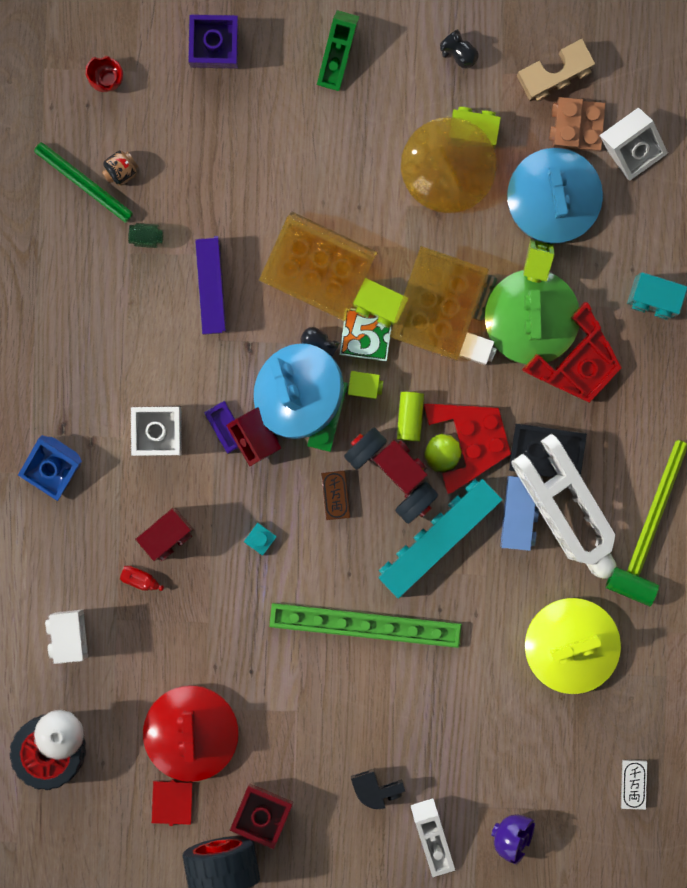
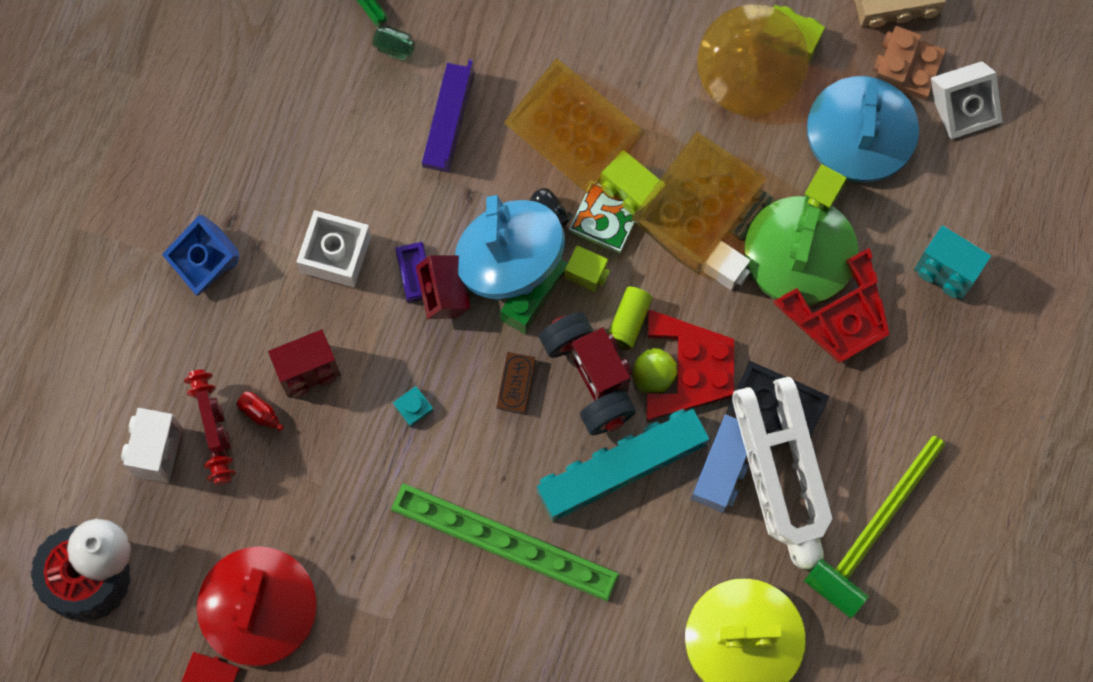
camera: 10 degrees right, 15 degrees down
(105, 598) = (212, 416): none -> plate

